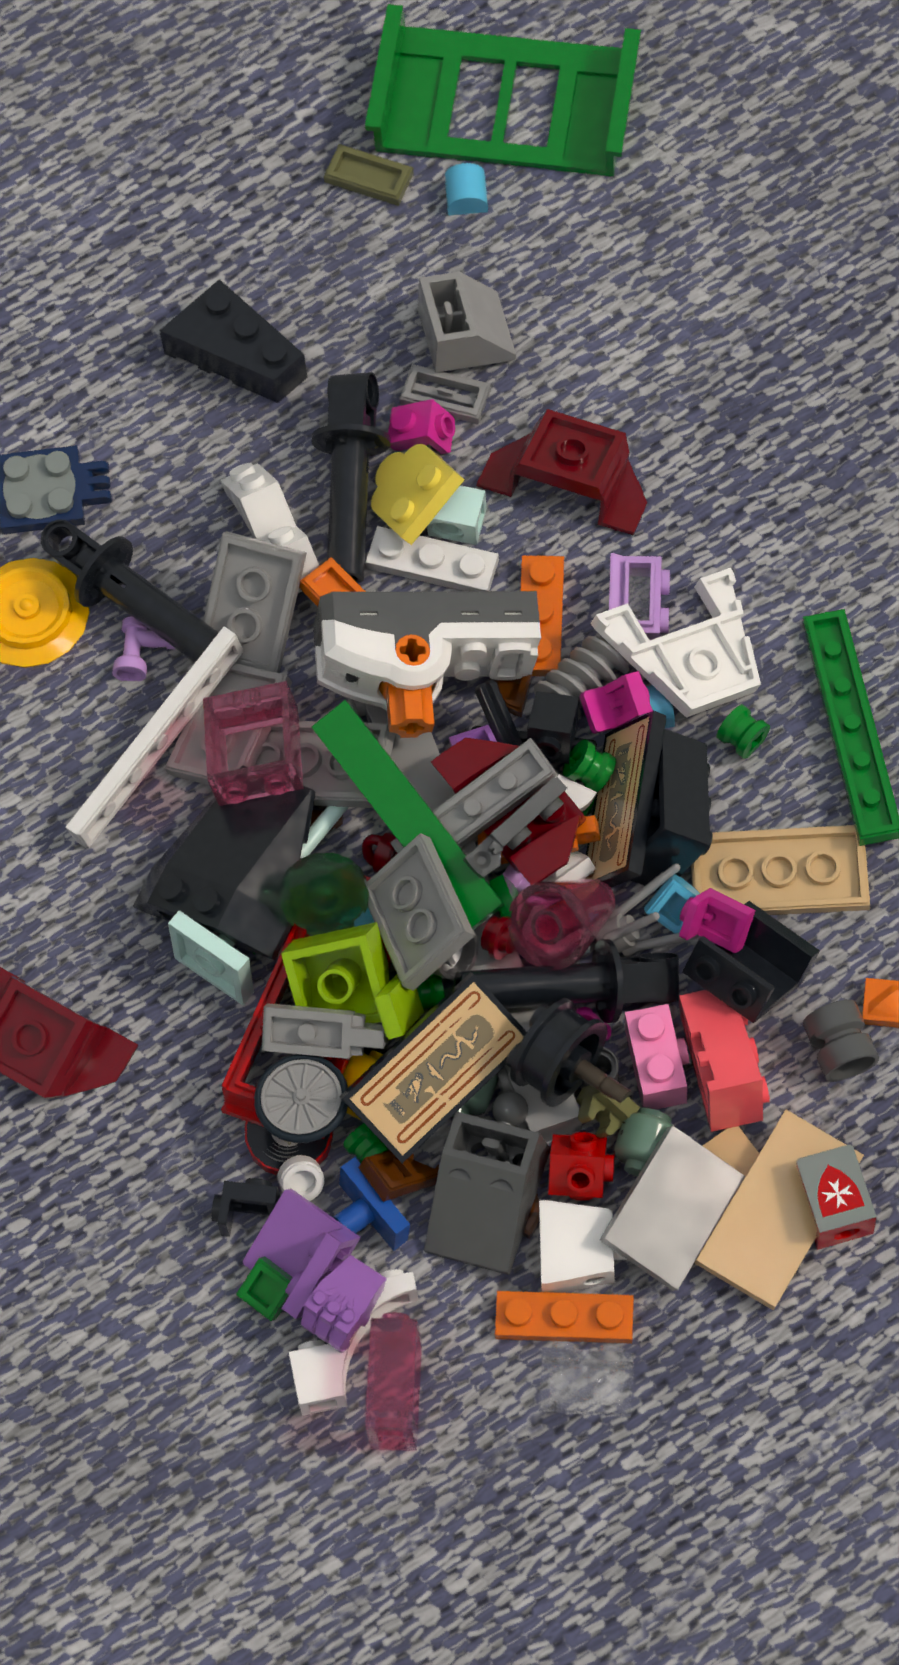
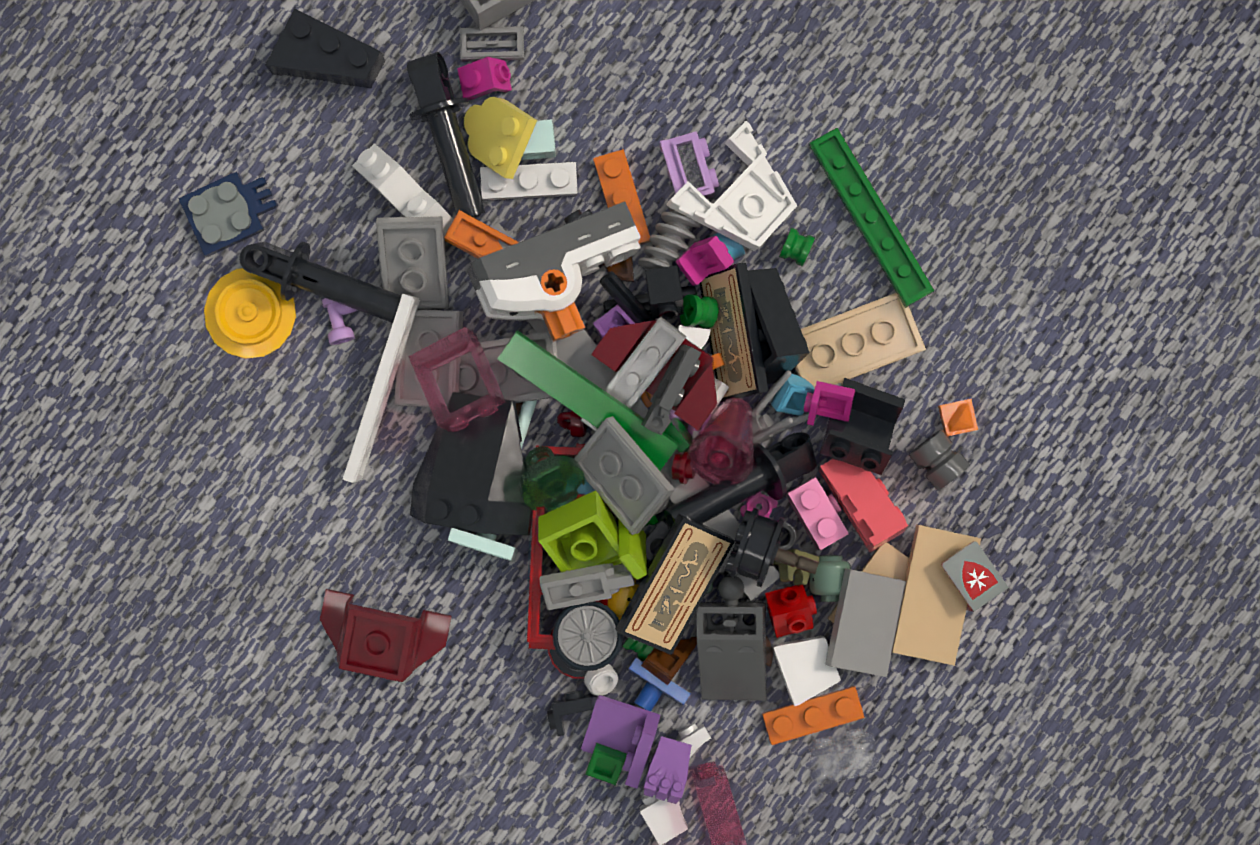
camera: 25 degrees left, 20 degrees up
(576, 459) = (604, 71): dark red piece -> none

